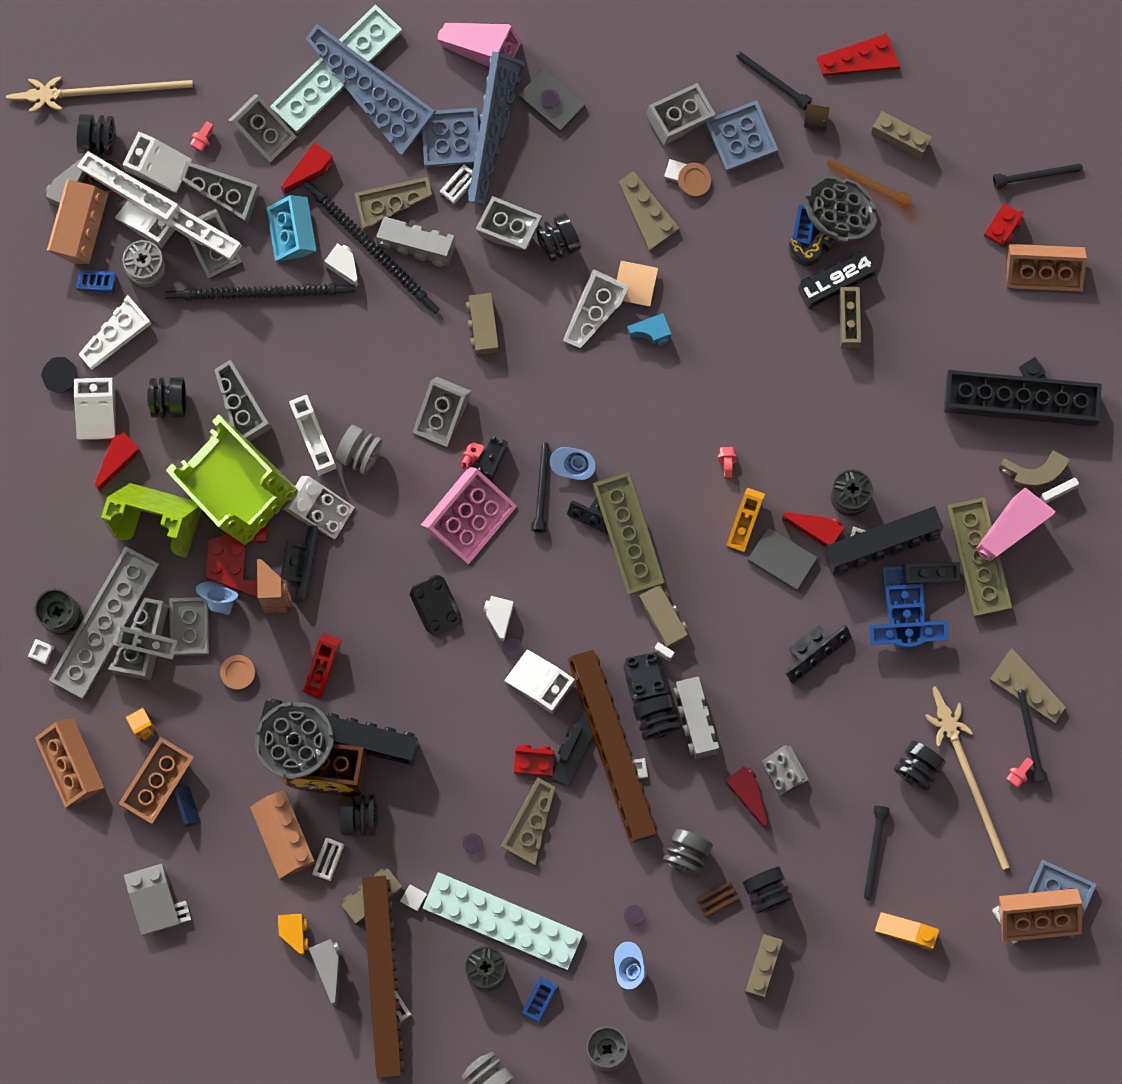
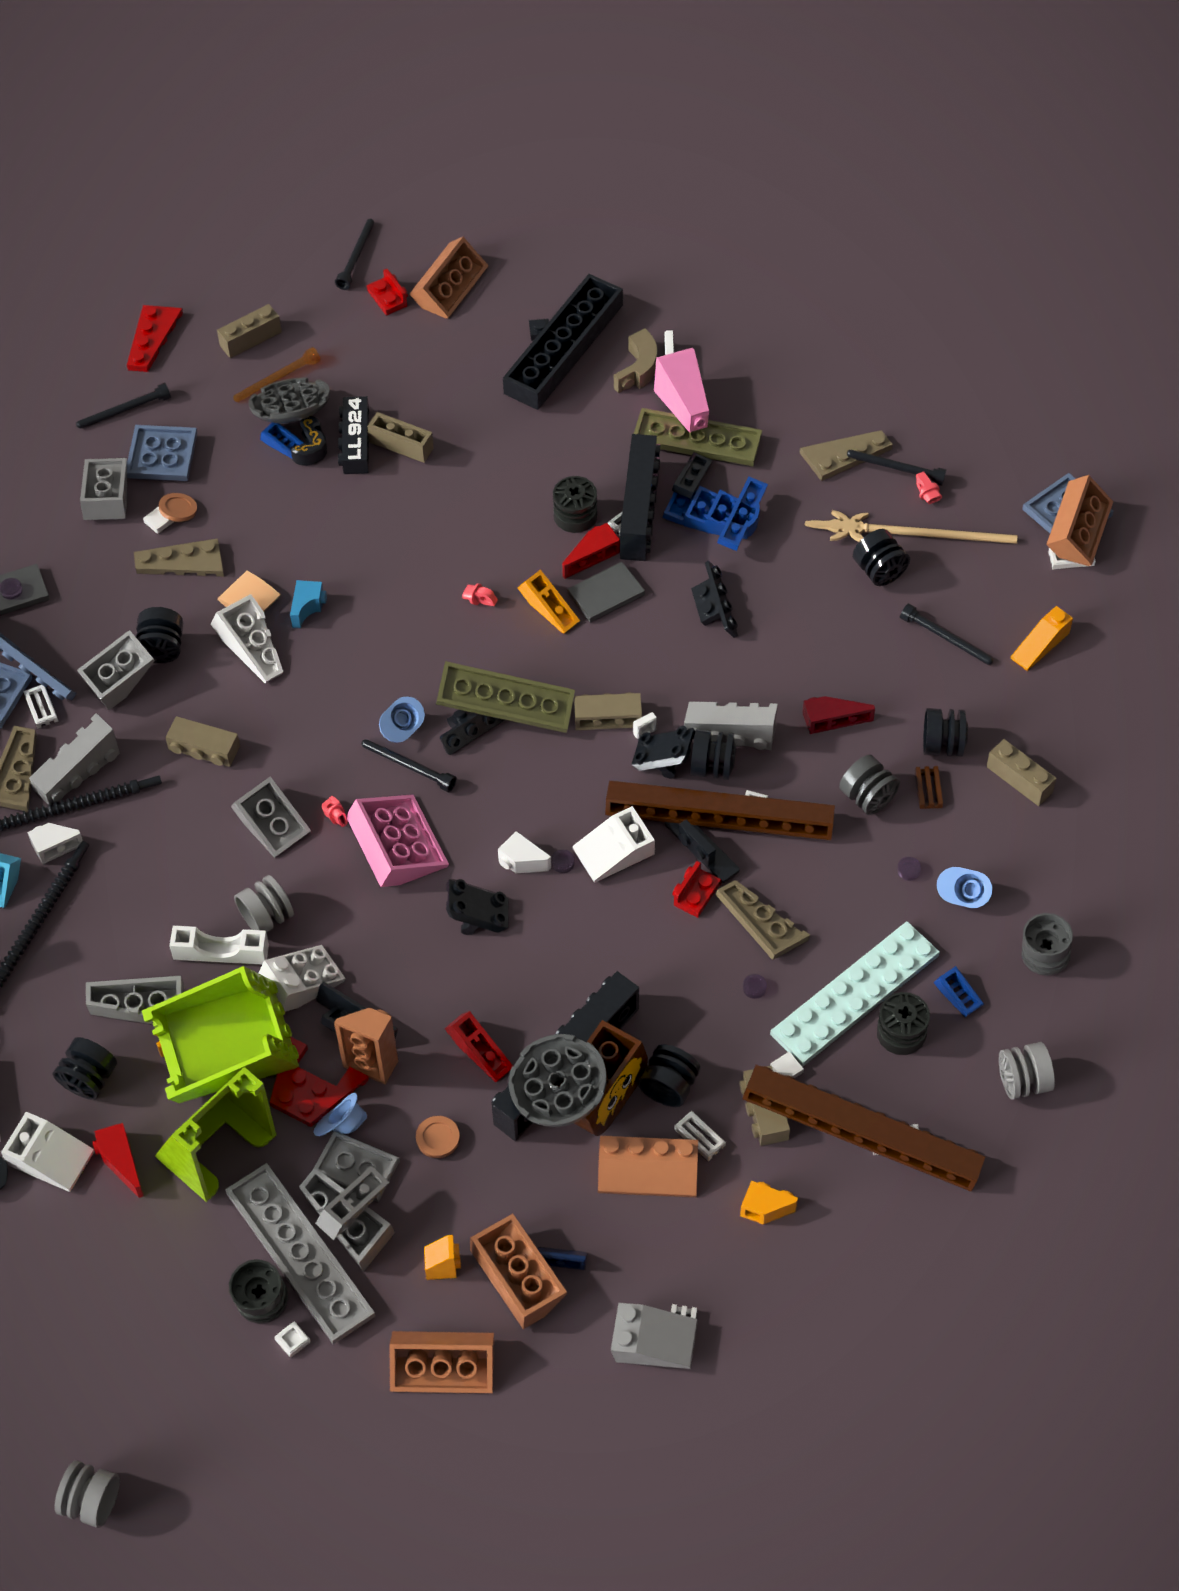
camera: 65 degrees left, 20 degrees down
(328, 965) = (830, 1179): light grey slope -> none
(492, 457) = (346, 788): black hinge -> none
(785, 769) = (825, 671): light grey bracket -> none
(816, 117) = (186, 386): dark brown piece -> none

